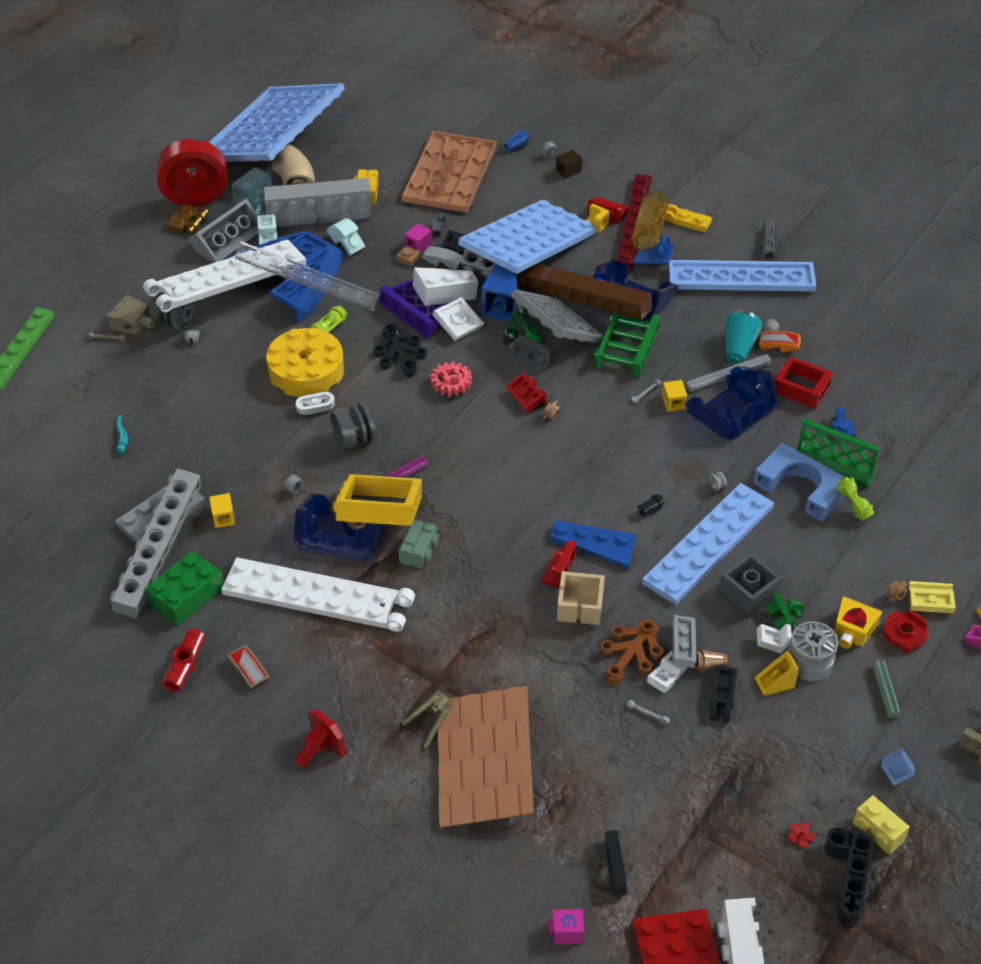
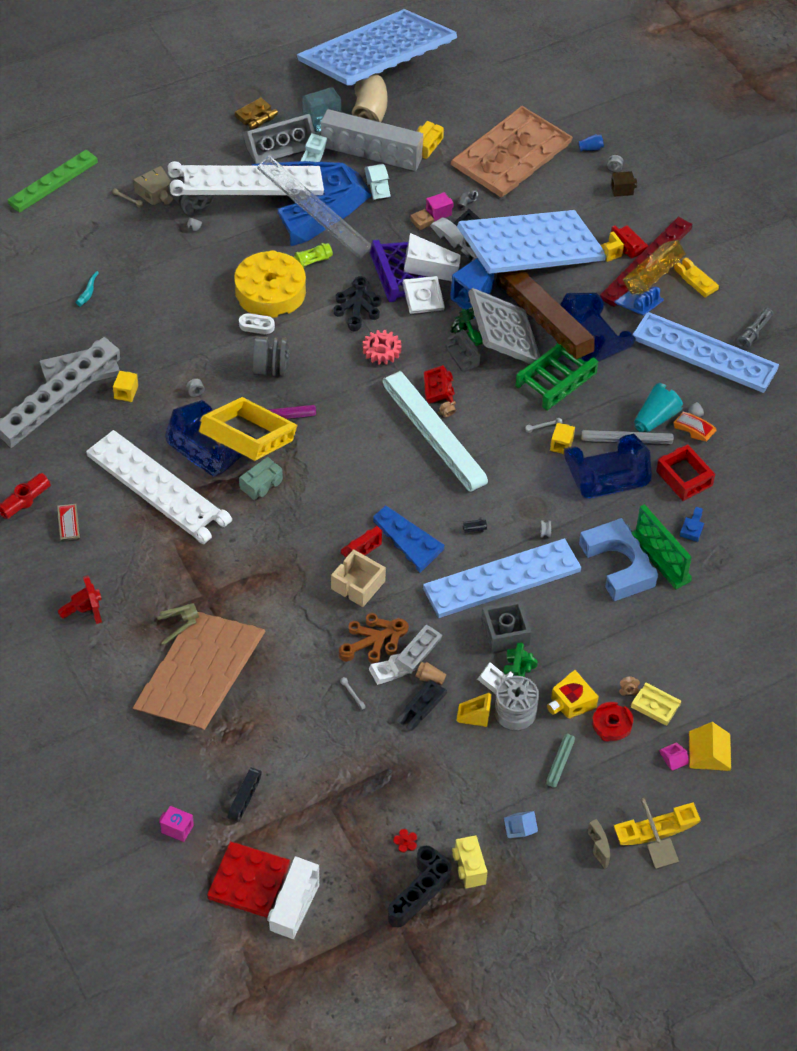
camera: 25 degrees right, 5 degrees up
(184, 588) = (57, 438): green brick -> none
(187, 186) = (270, 84): red brick -> none
(554, 434) = (435, 431): none -> light aqua beam
(860, 506) = (650, 601): lime piece -> none

